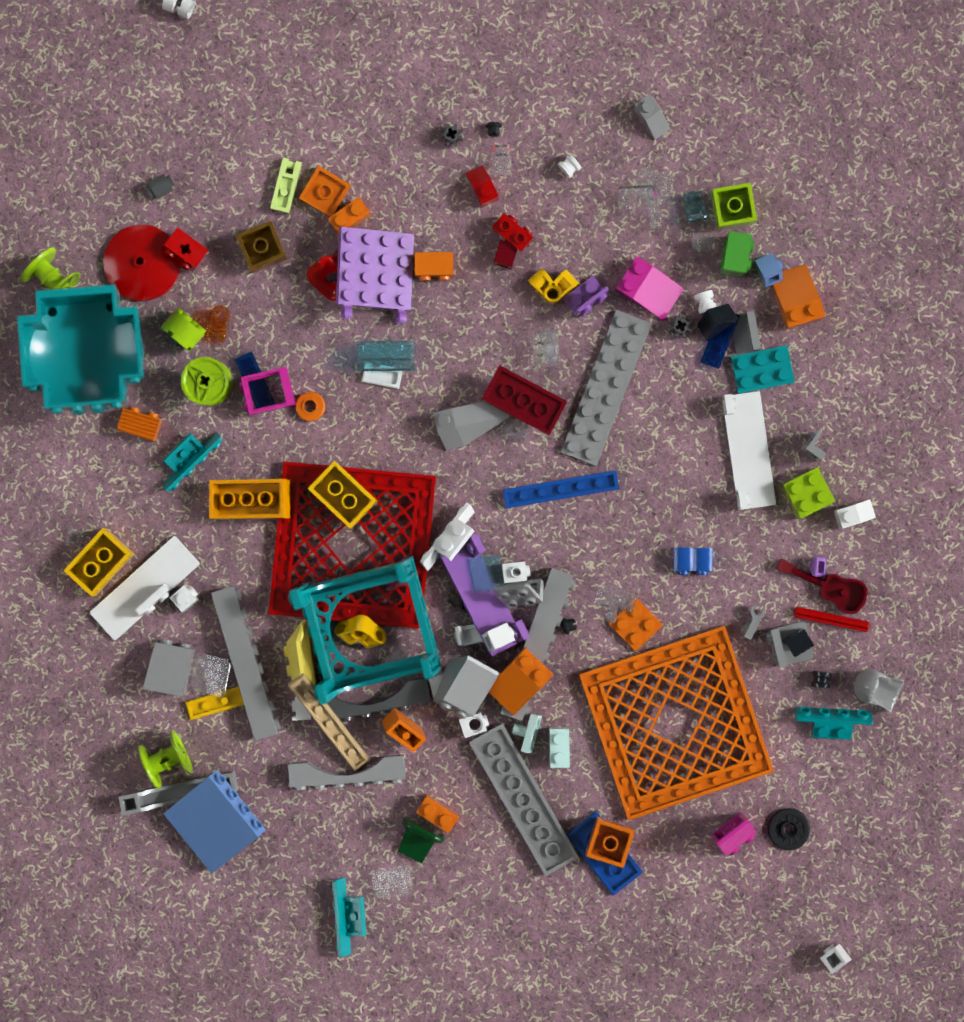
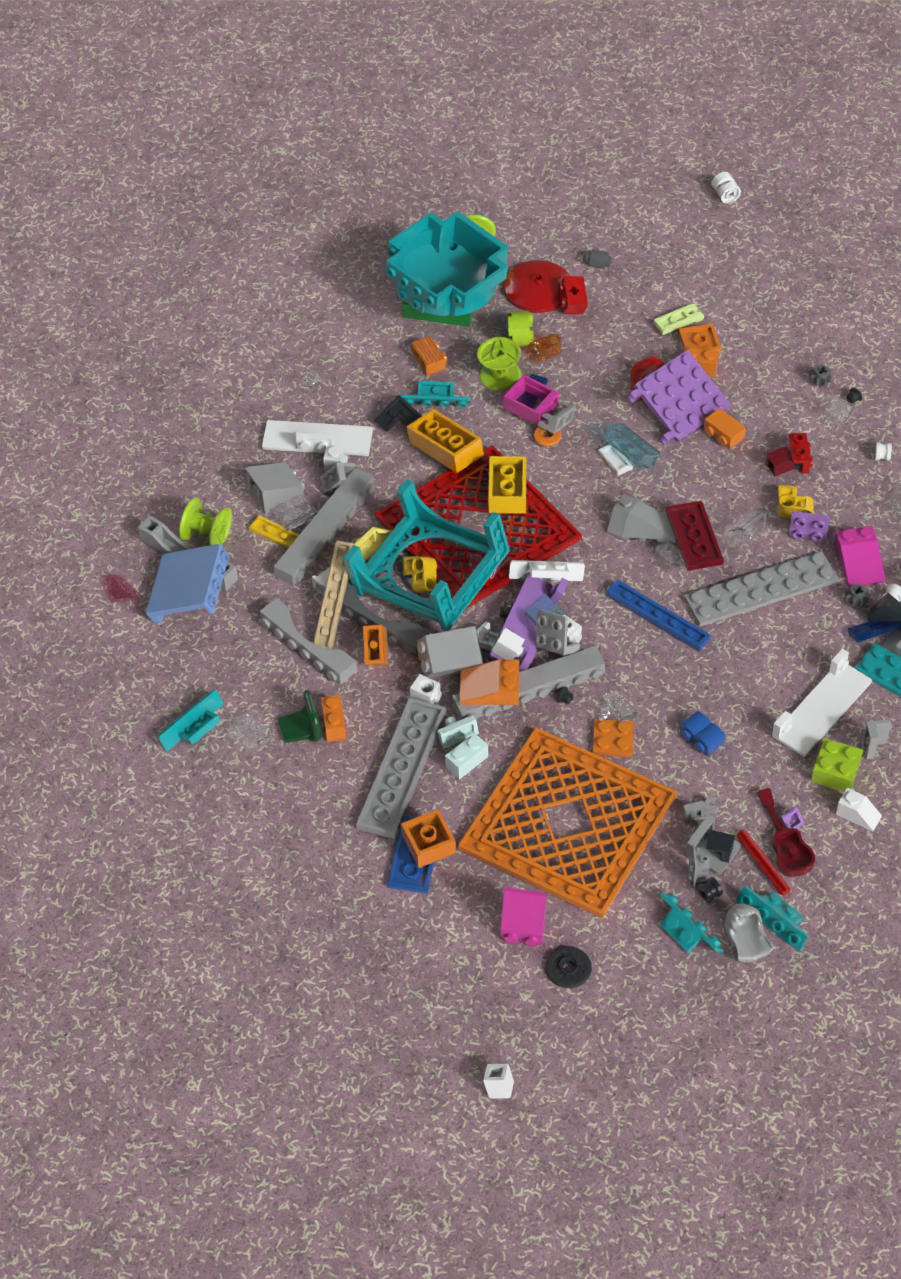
camera: 50 degrees right, 35 degrees down
(99, 562) = (309, 397): yellow brick -> none
(165, 867) = (120, 590): none -> clear pink slope
(180, 502) = (397, 411): none -> black tile
(205, 617) = (335, 476): none -> light grey panel
(261, 247) = (623, 331): pearl gold brick -> none
(302, 386) = (558, 419): none -> light grey hinge
(482, 186) = (807, 418): red slope -> none
(803, 676) = (698, 868): none -> light grey hinge
(879, 651) = (776, 916): none -> teal bracket

